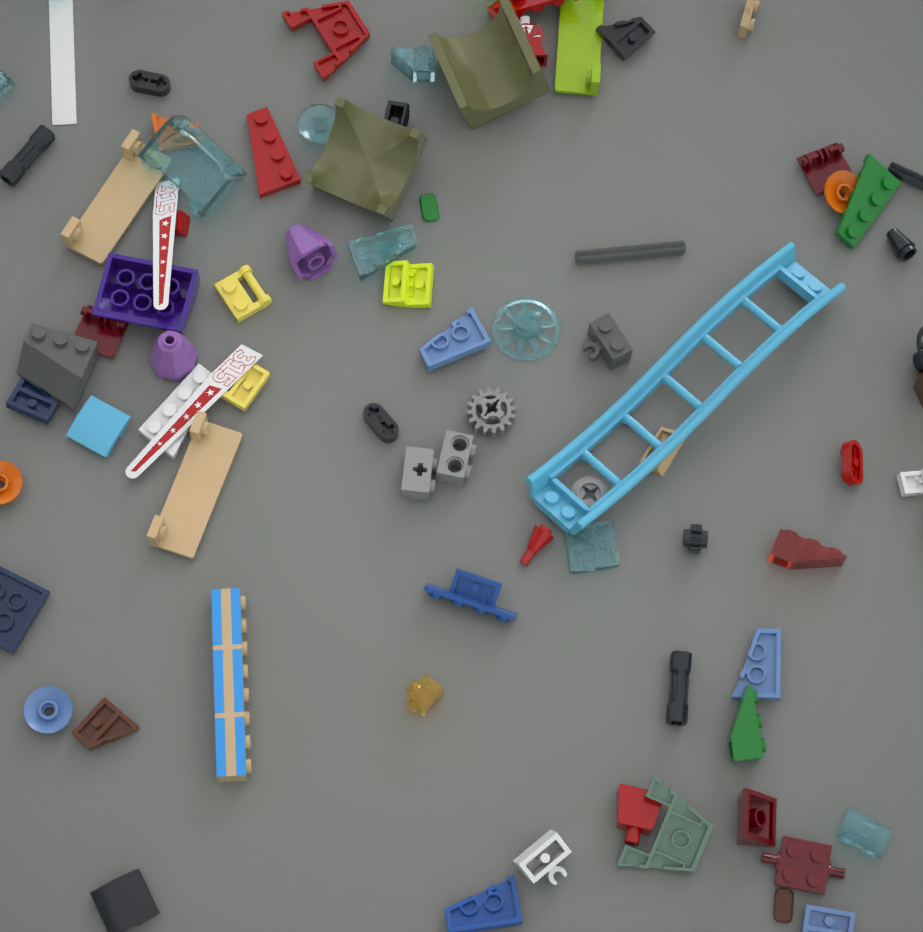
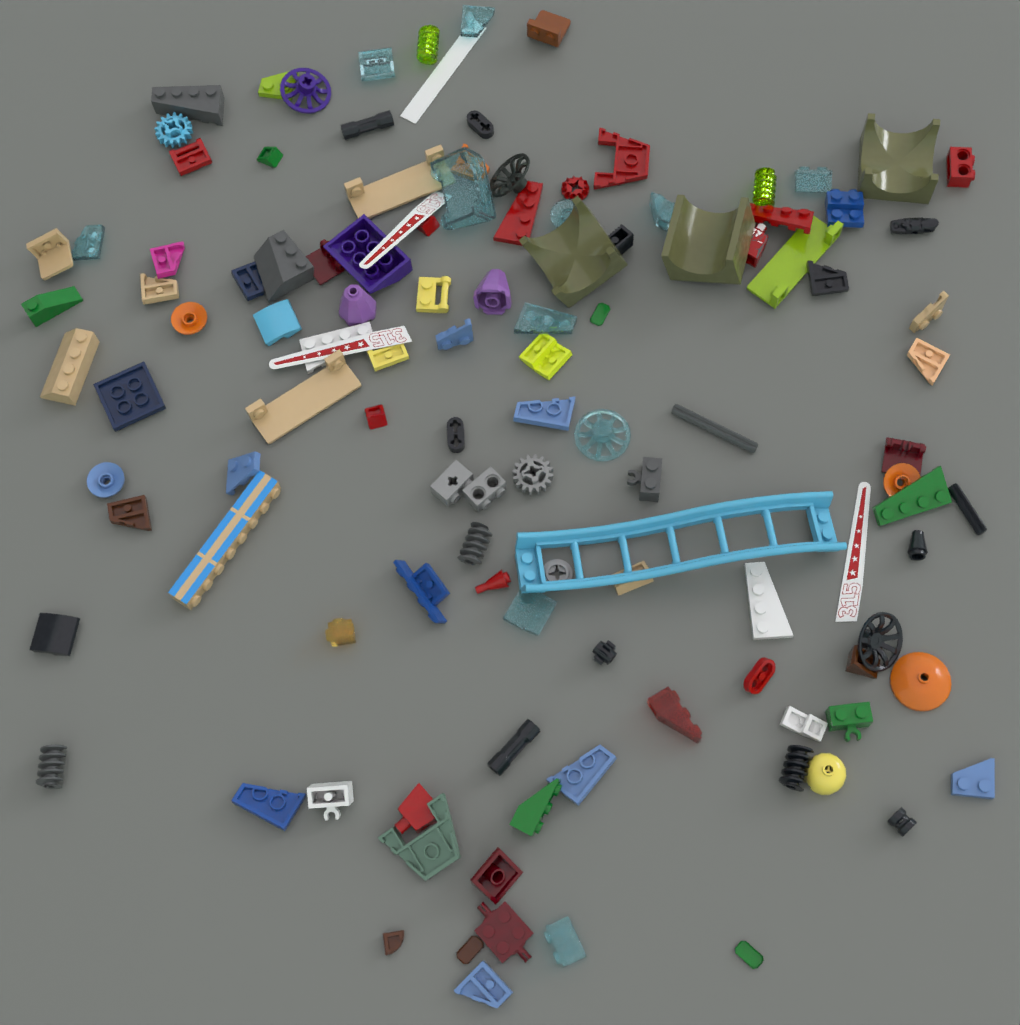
camera: 45 degrees right, 0 degrees up
(26, 29) = (428, 44): none -> clear neon green piece
(189, 603) = (241, 470): none -> medium blue wing
(236, 121) = (515, 181): none -> pearl dark grey wheel
(283, 457) = (376, 416): none -> red slope
(296, 97) = (582, 191): none -> red gear
(303, 322) = (455, 336): none -> medium blue wing
(488, 518) = (474, 543): none -> dark grey piece
(779, 57) = (927, 359): none -> light nougat wing
(807, 395) = (765, 608): none -> white wing
(857, 301) = (855, 559): none -> sticker

